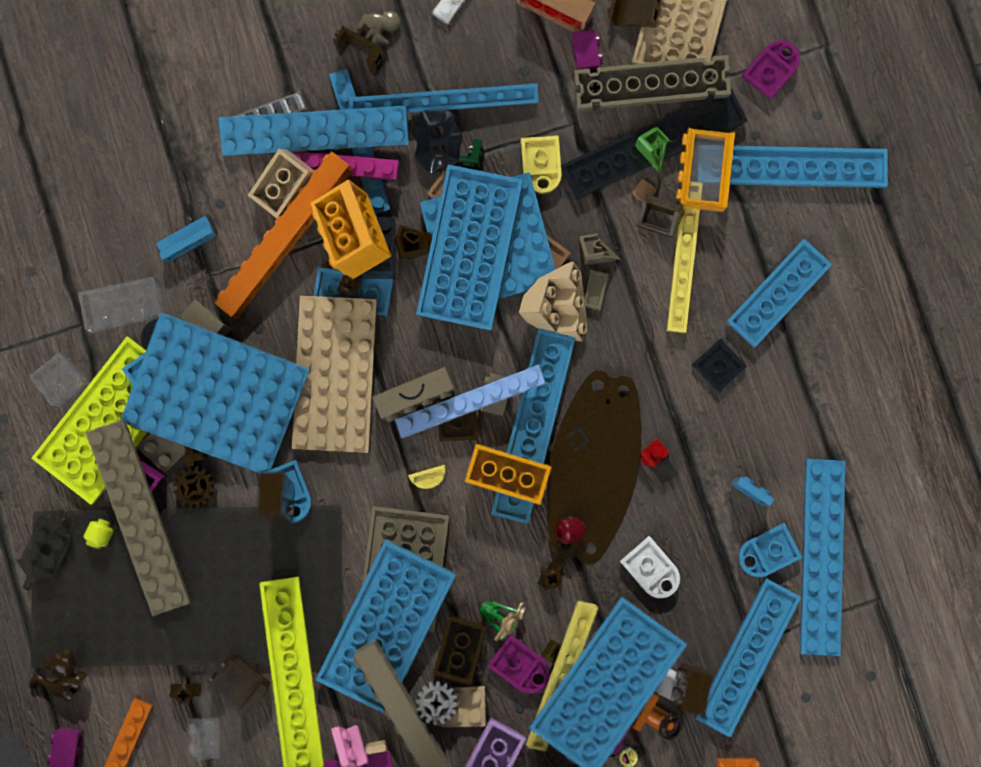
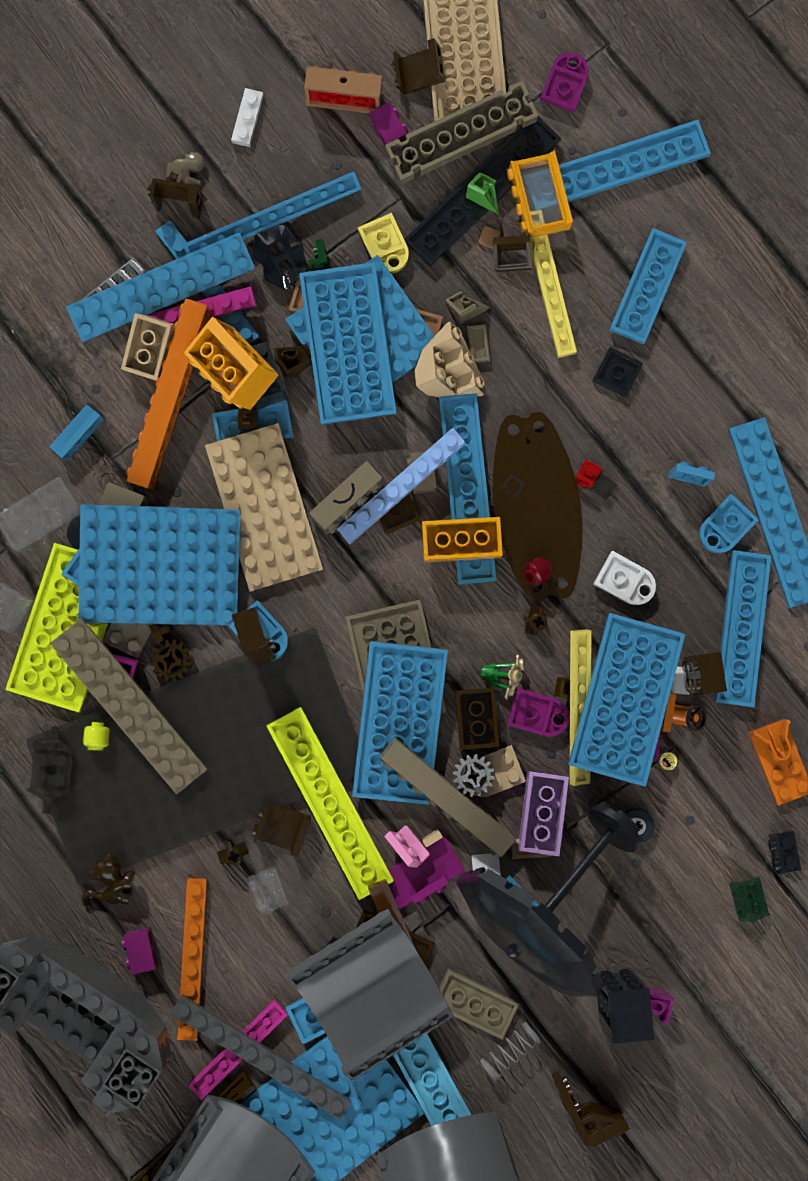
camera: 30 degrees left, 0 degrees up
(428, 478) = (388, 572): light yellow tile -> none

